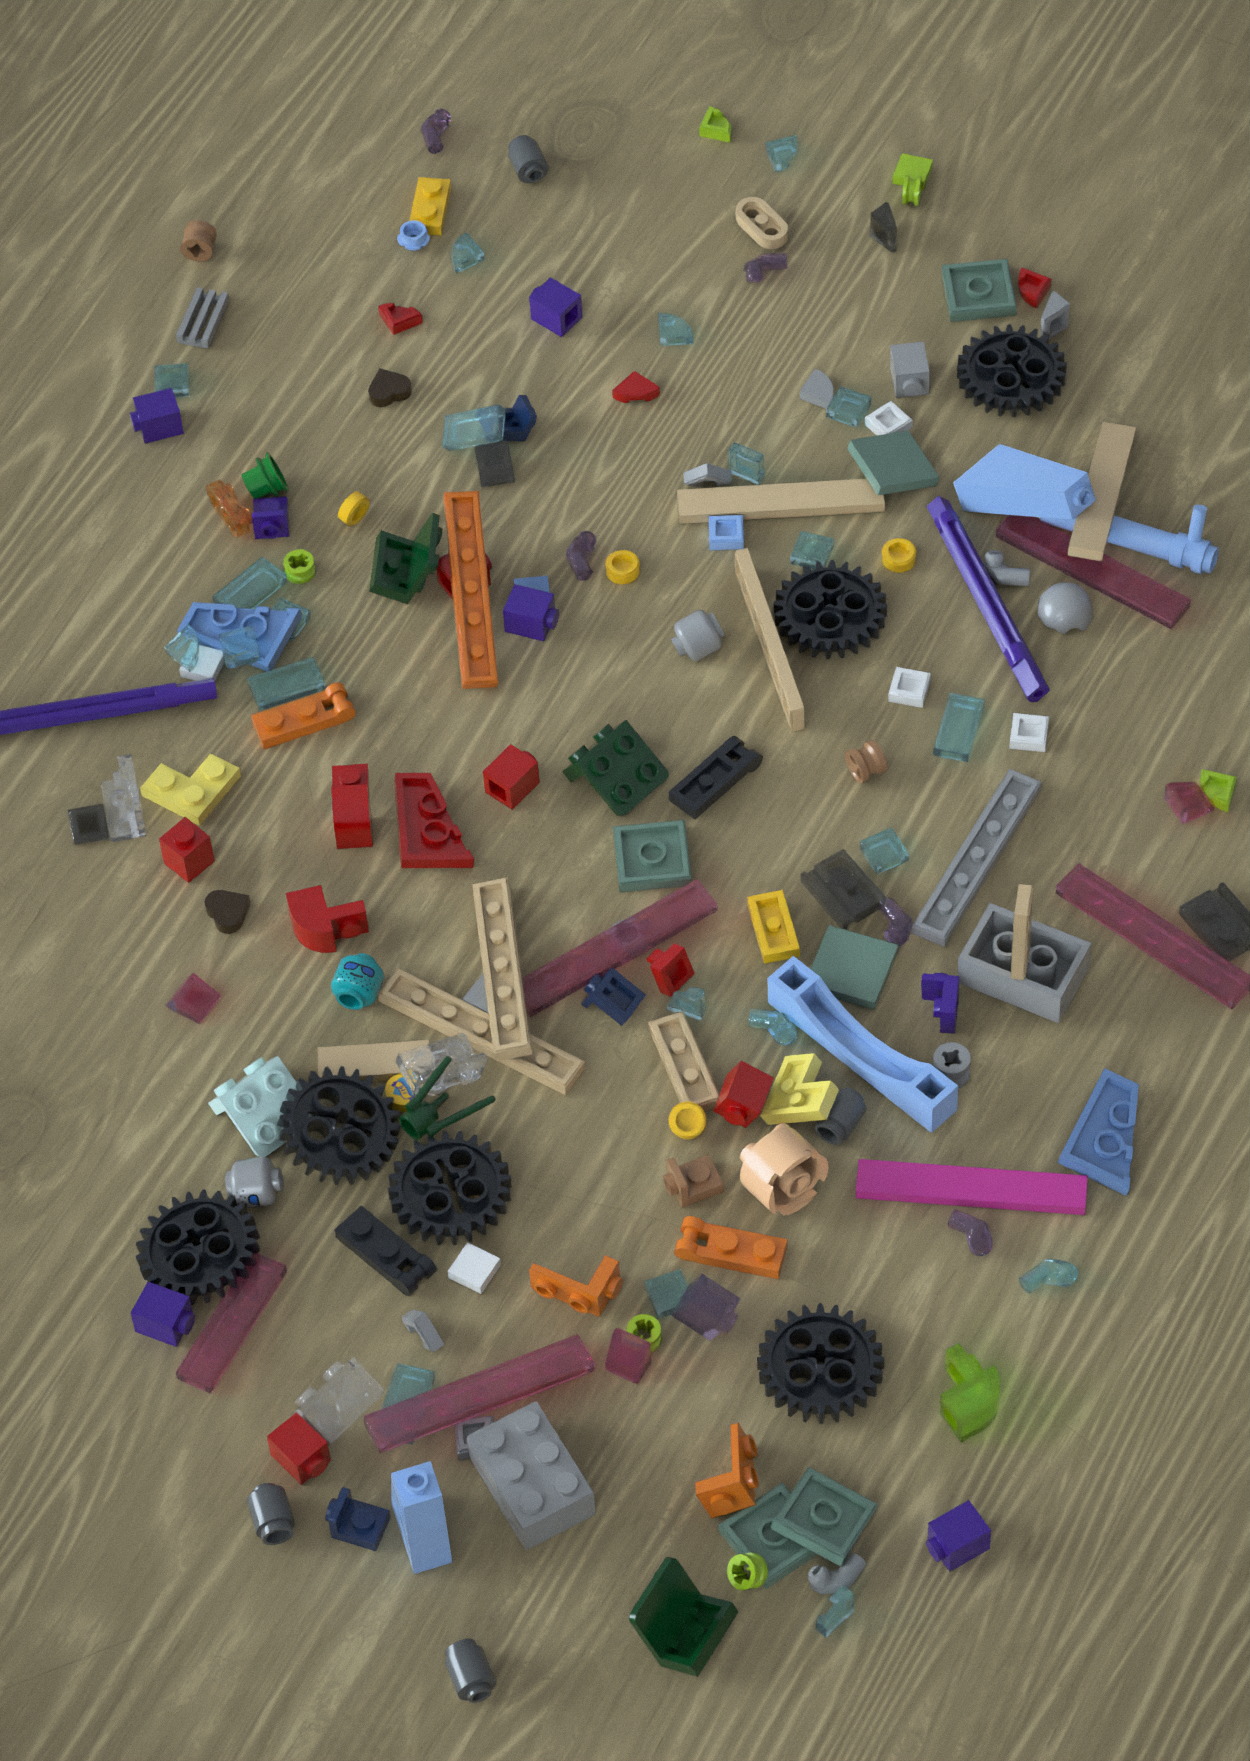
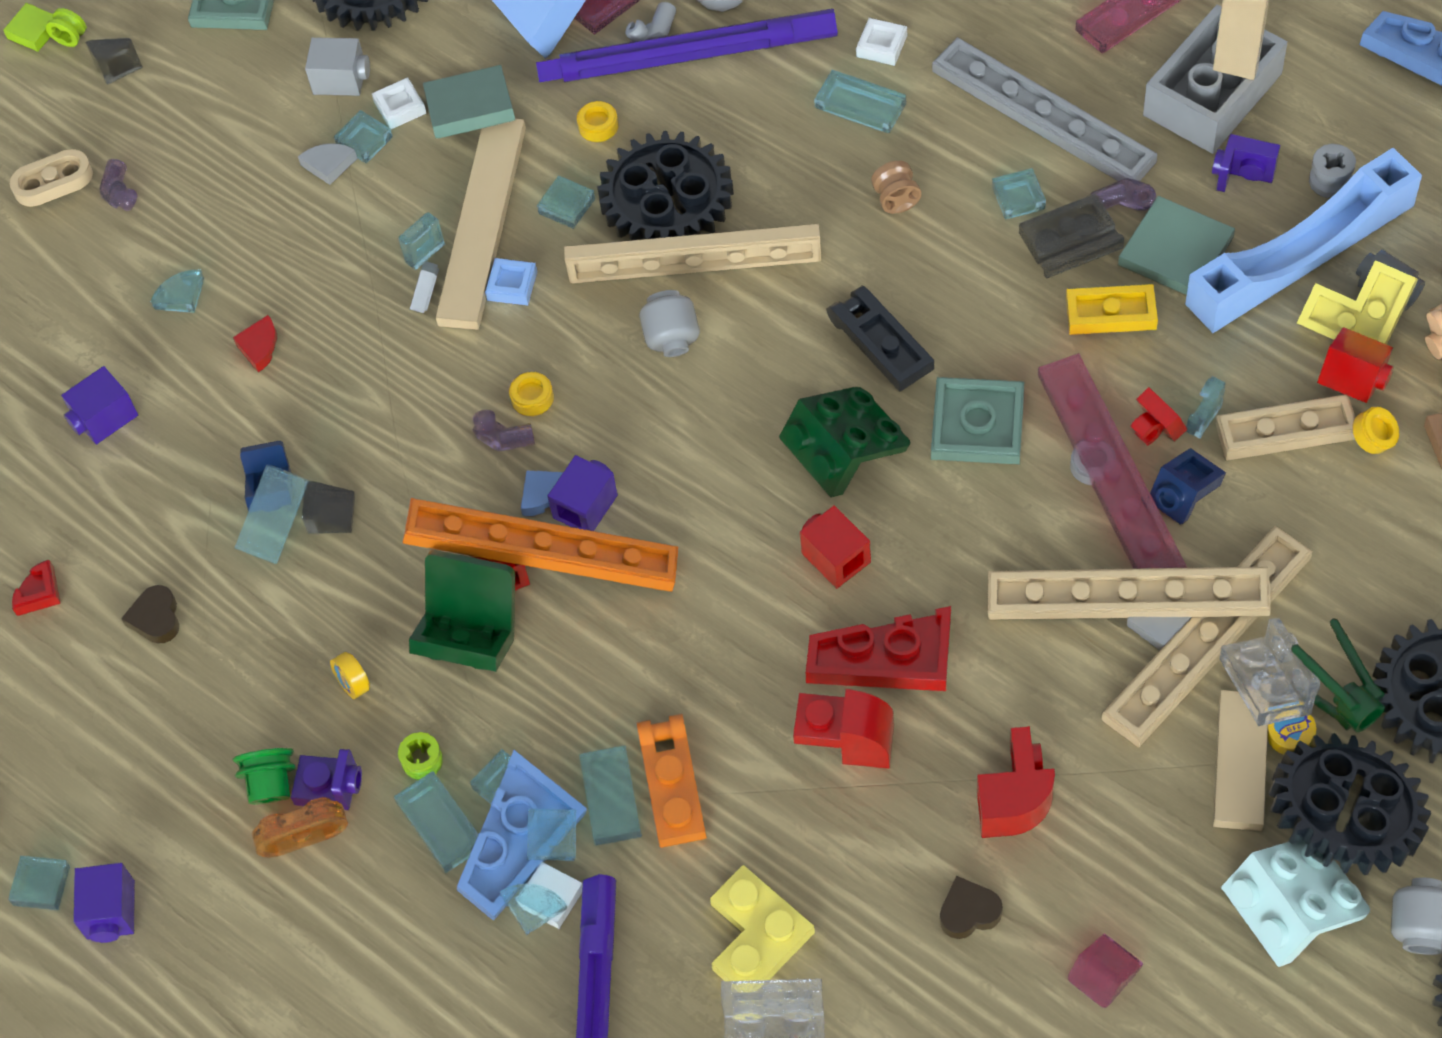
camera: 75 degrees left, 5 degrees up
(186, 849) = (872, 941): red brick -> none
(357, 981) = (1125, 756): teal head -> none
(776, 1023) = (1247, 327): clear light blue arm -> none
(909, 687) = (790, 138): white tile -> none

